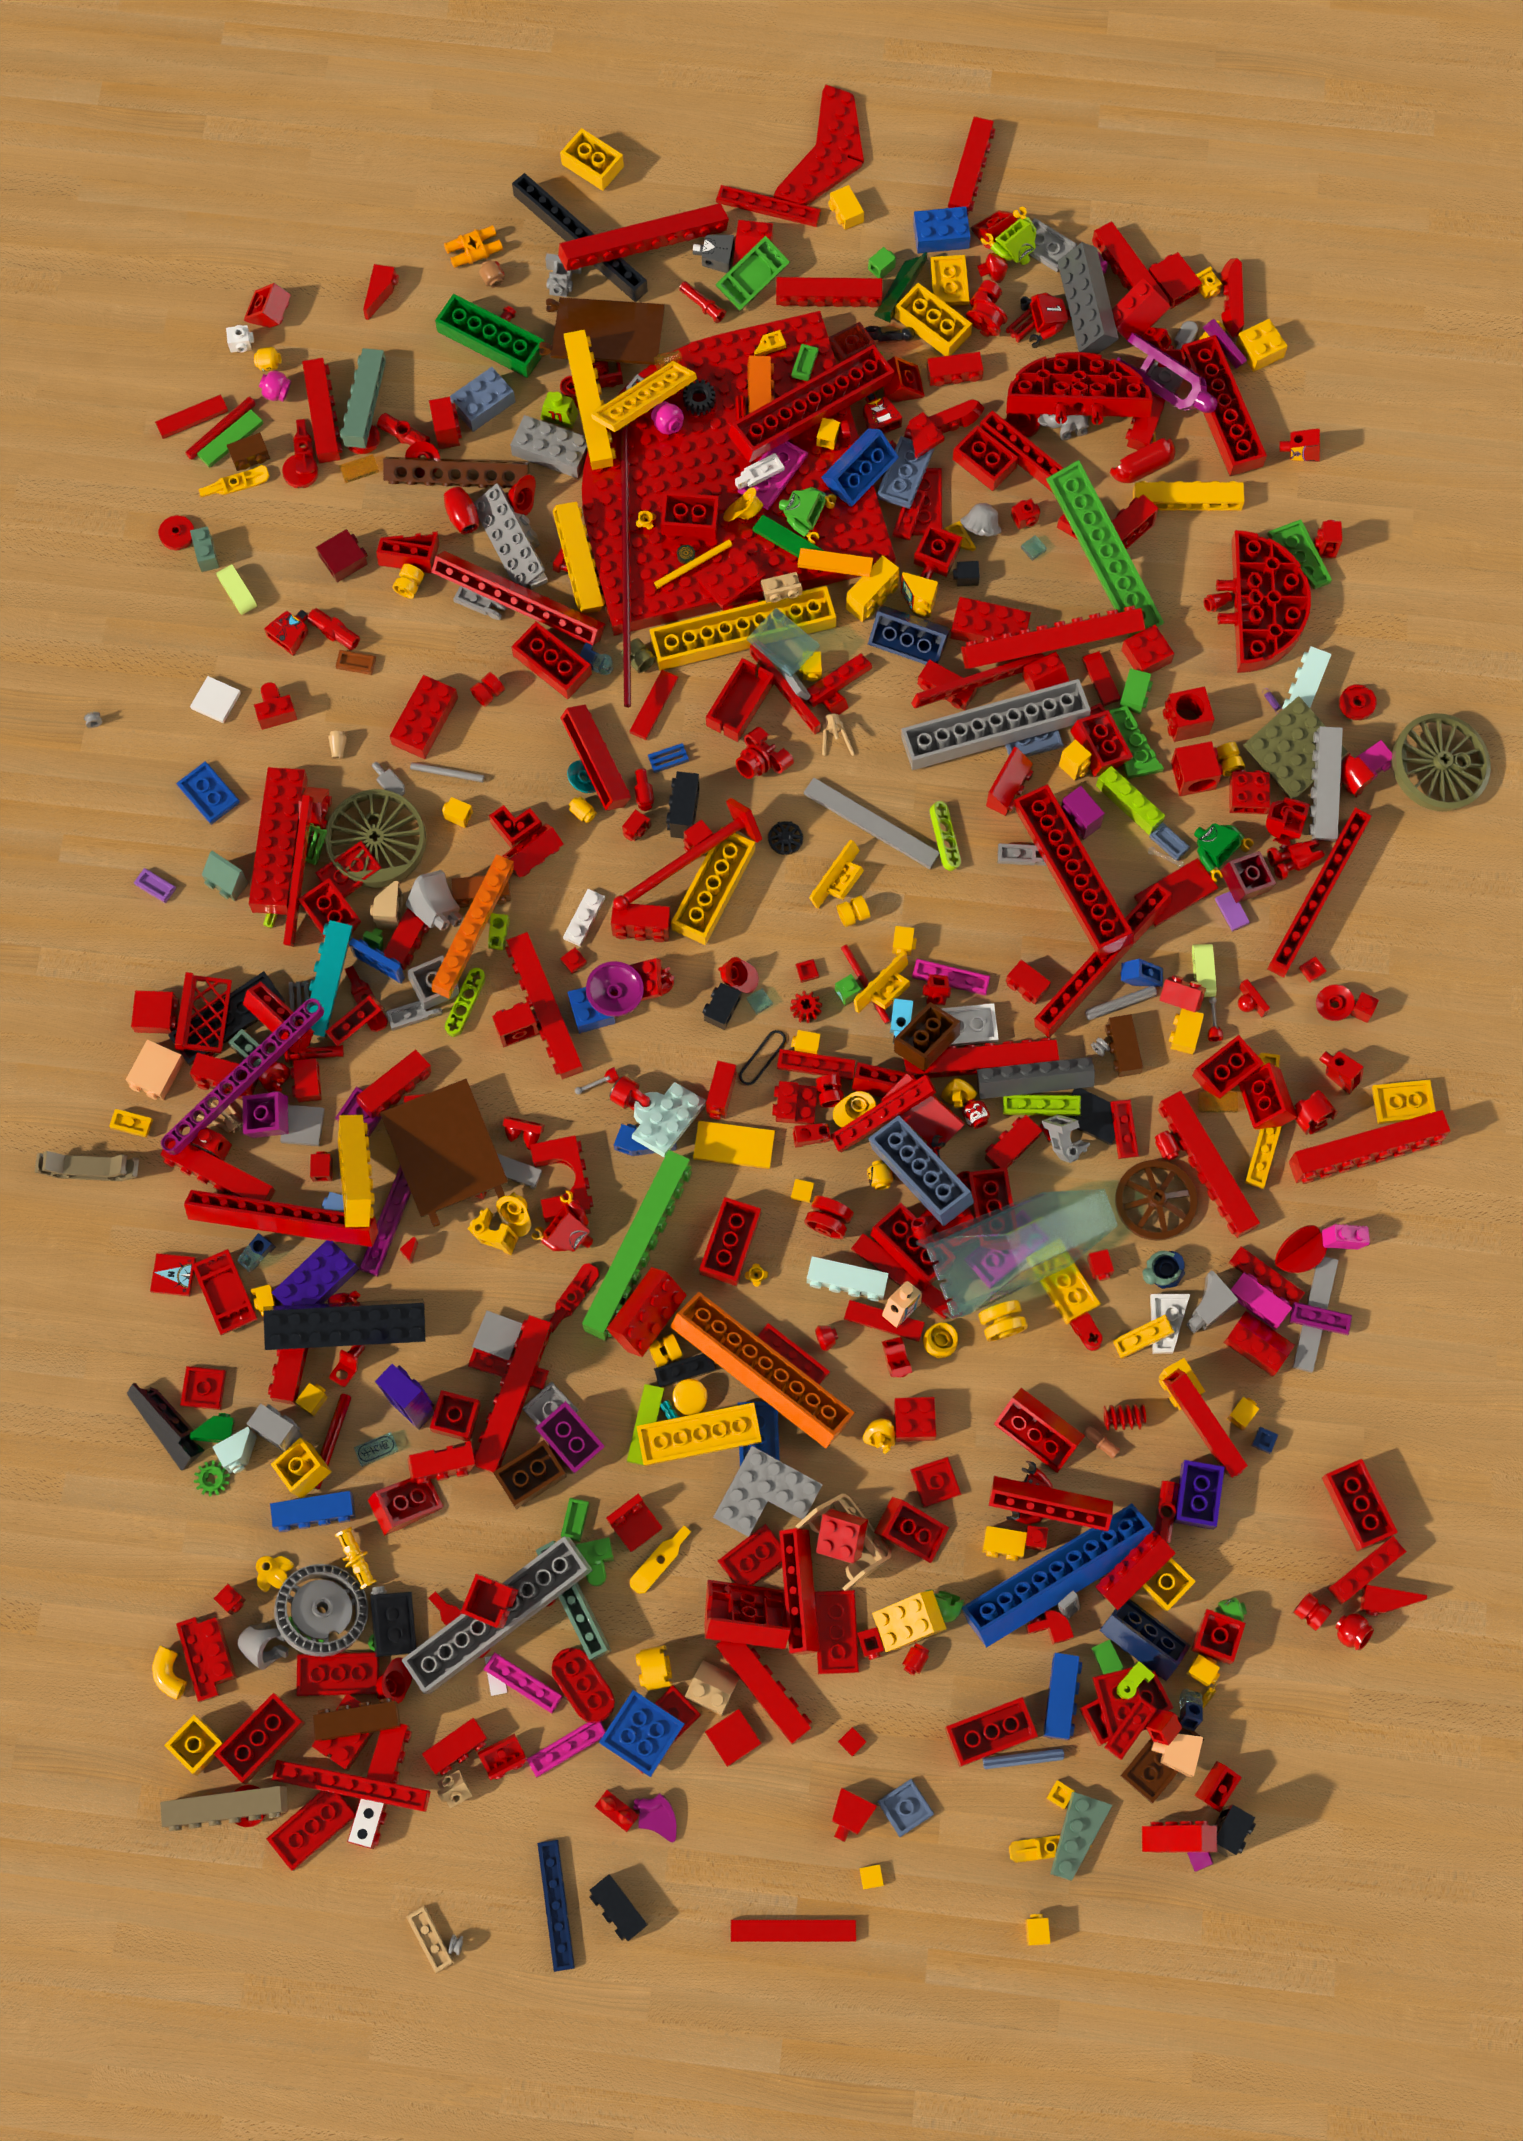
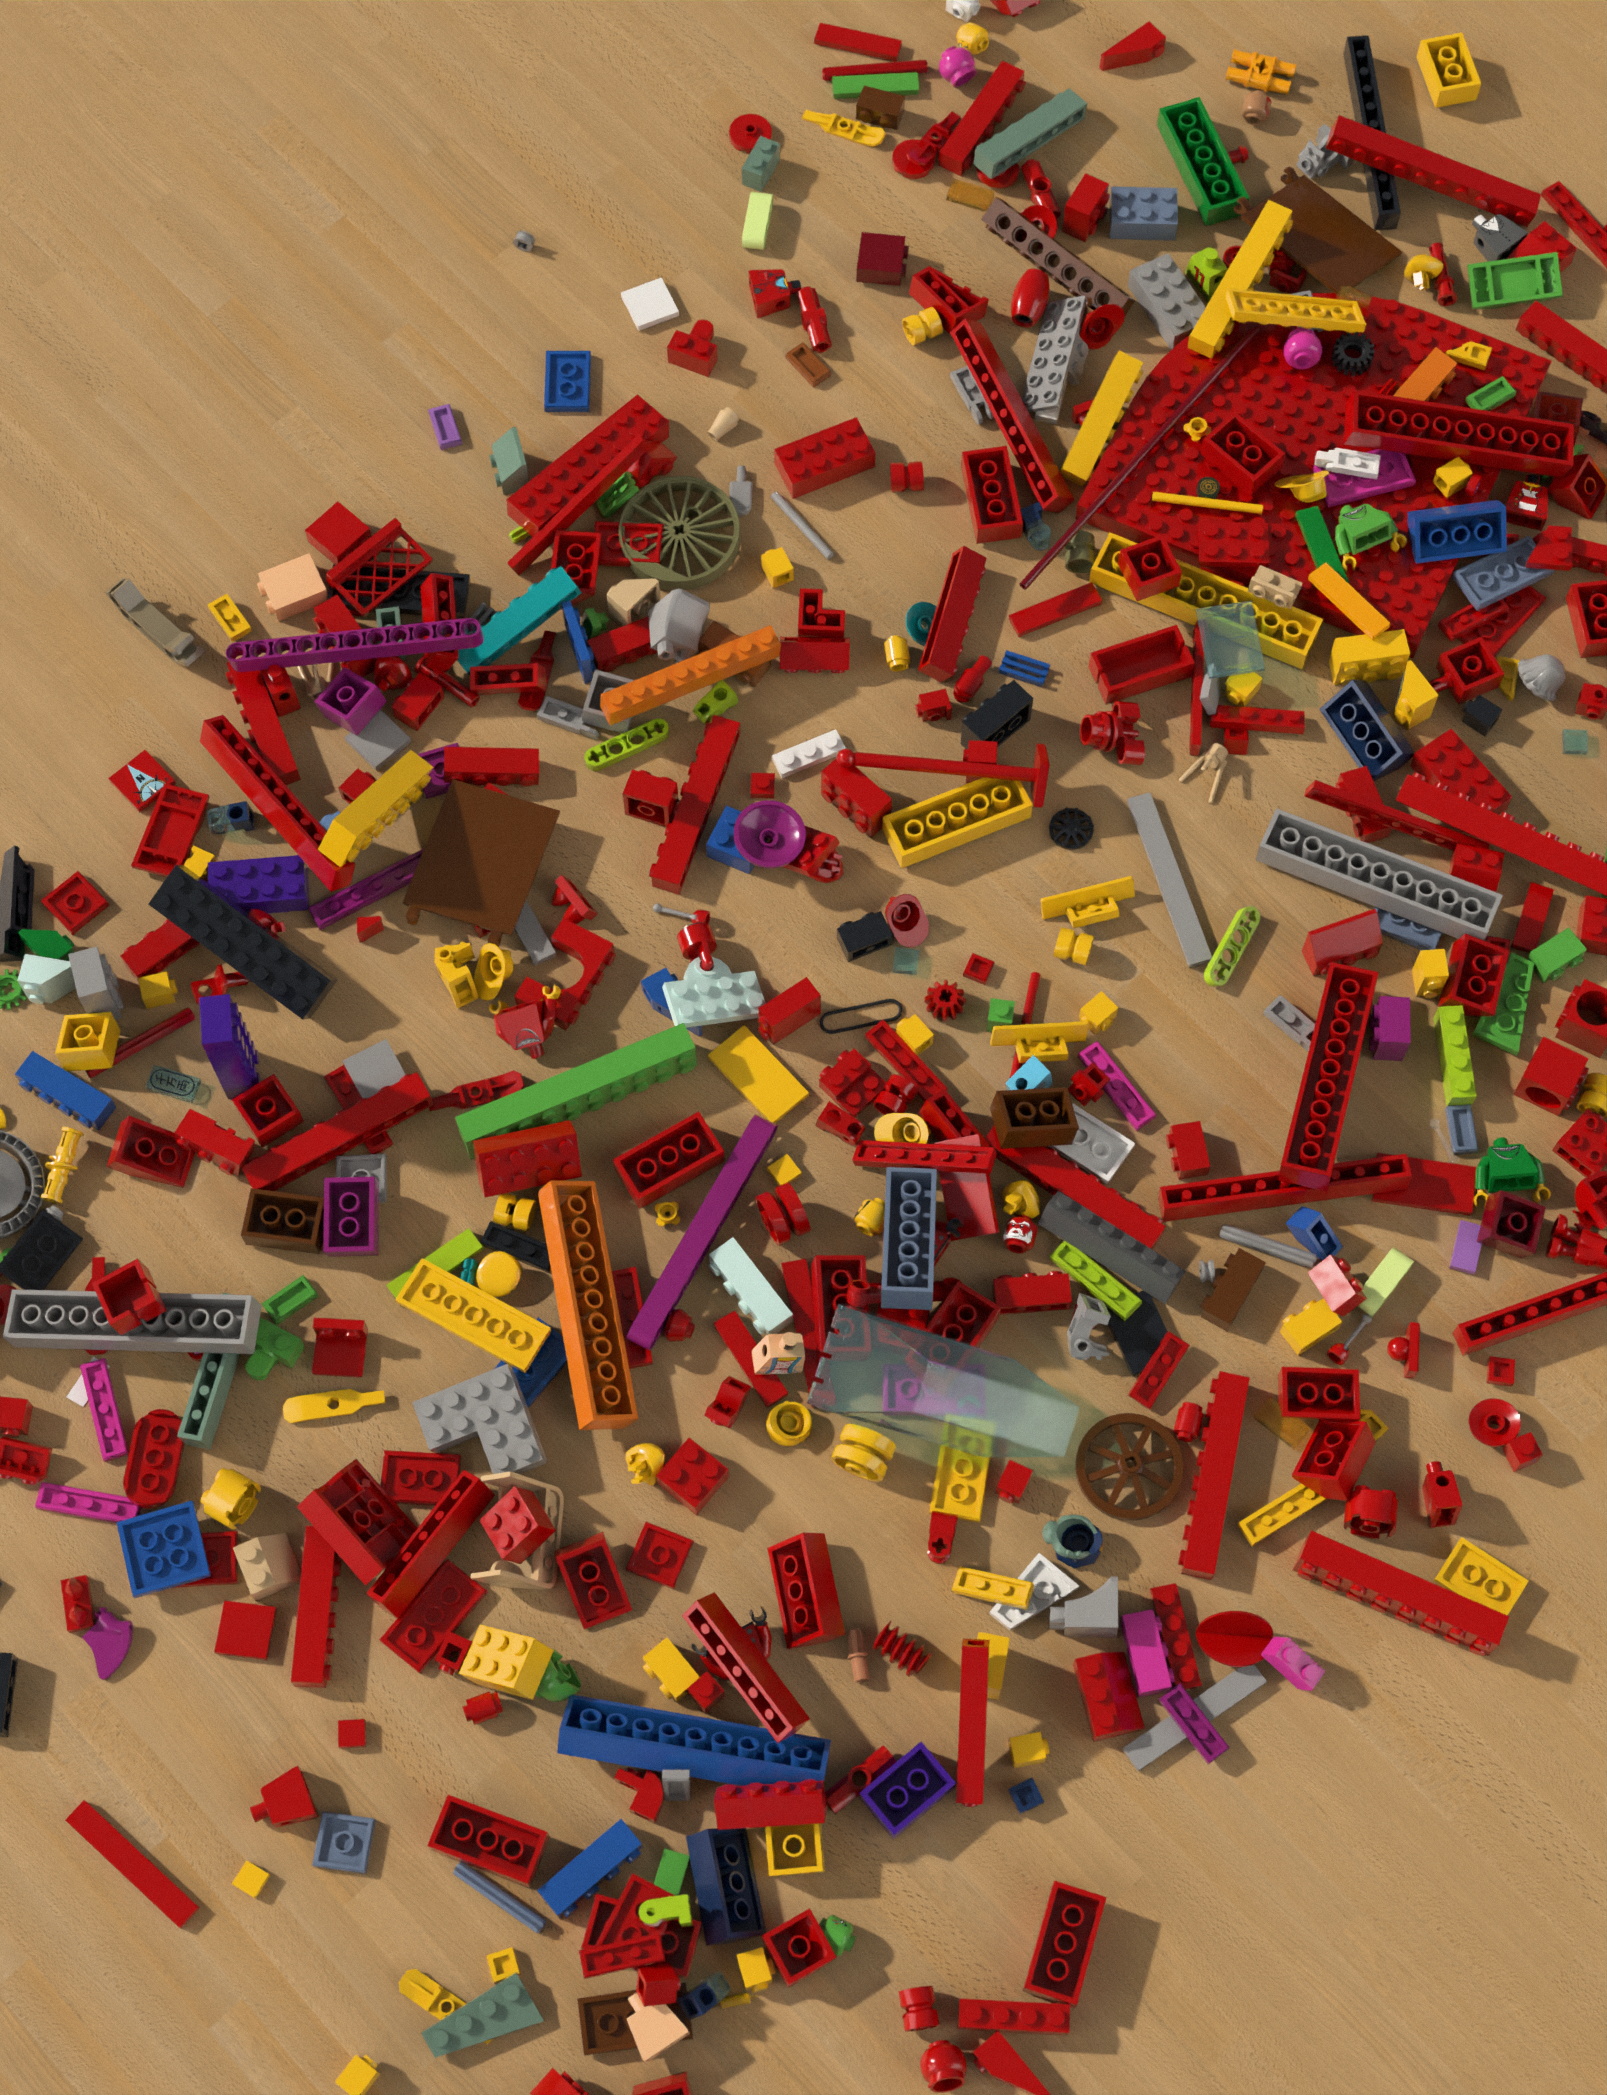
camera: 40 degrees right, 5 degrees down
(688, 308) = (1421, 269): none -> yellow piece
(697, 634) = (1149, 567): none -> red brick
(789, 1268) = (702, 1232): none -> magenta beam

